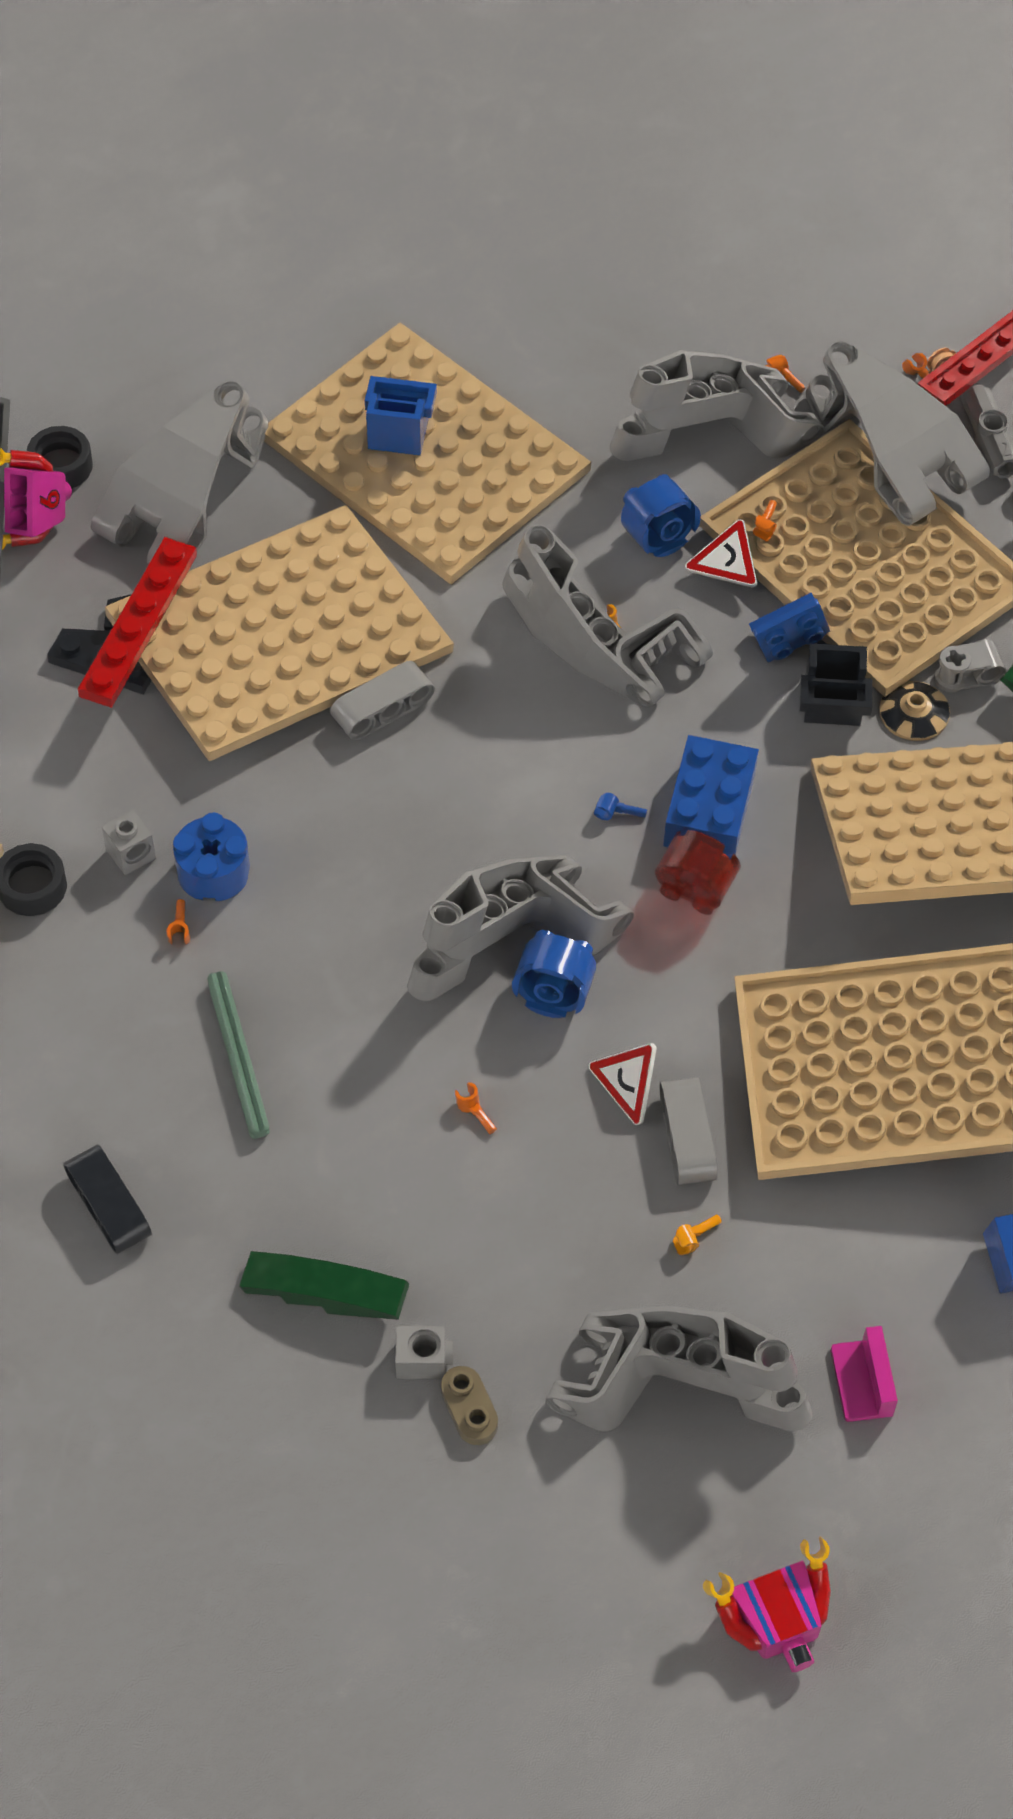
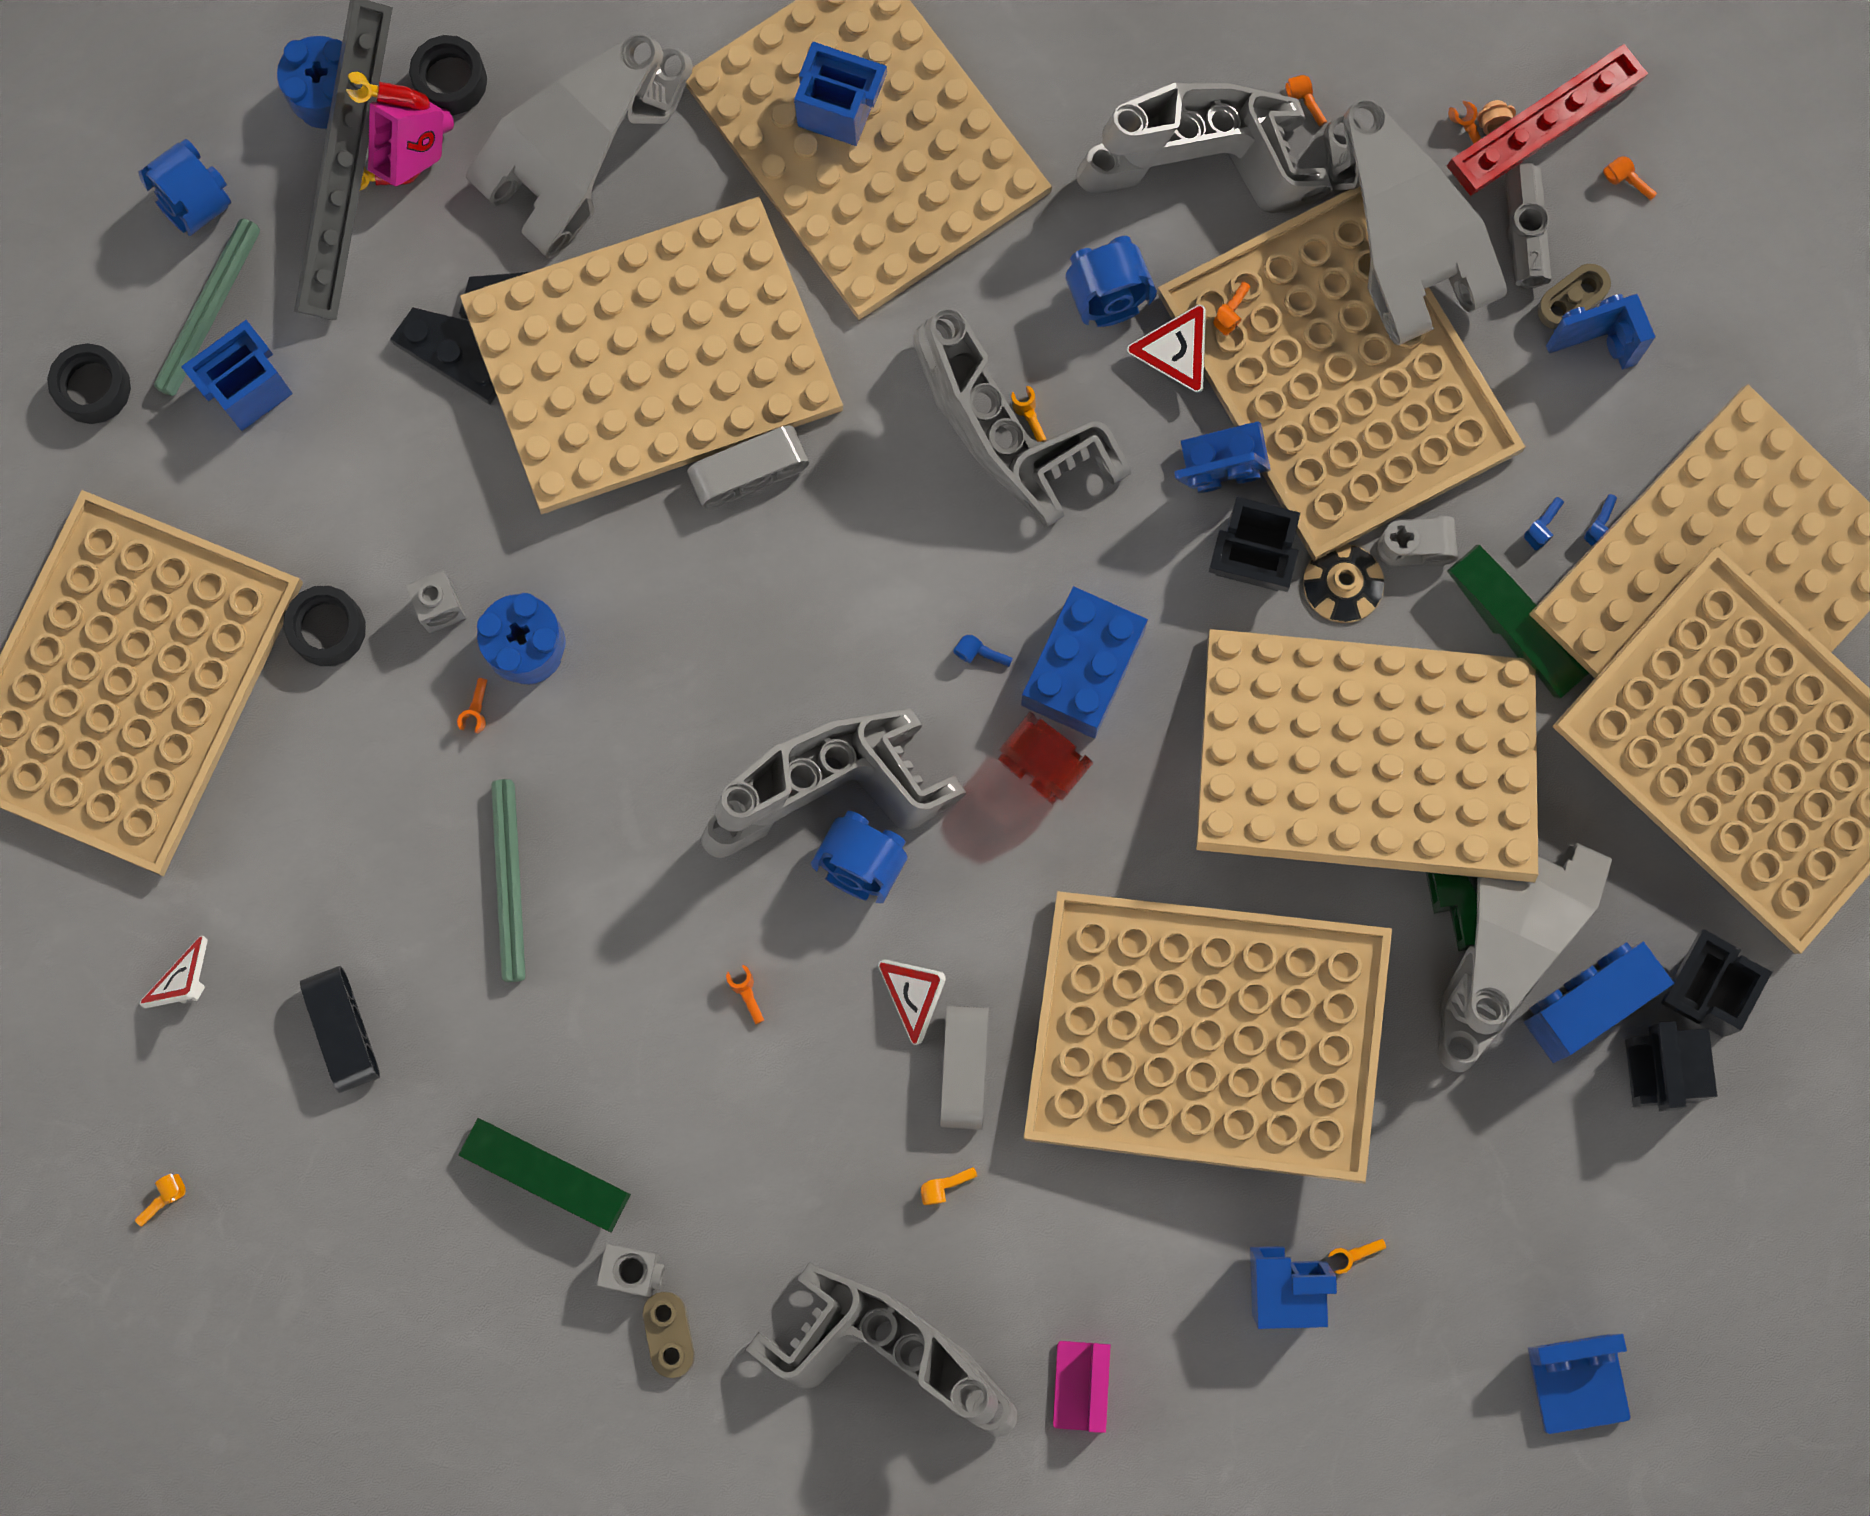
camera: 15 degrees right, 20 degrees up
(137, 622) = (489, 328): red plate -> none

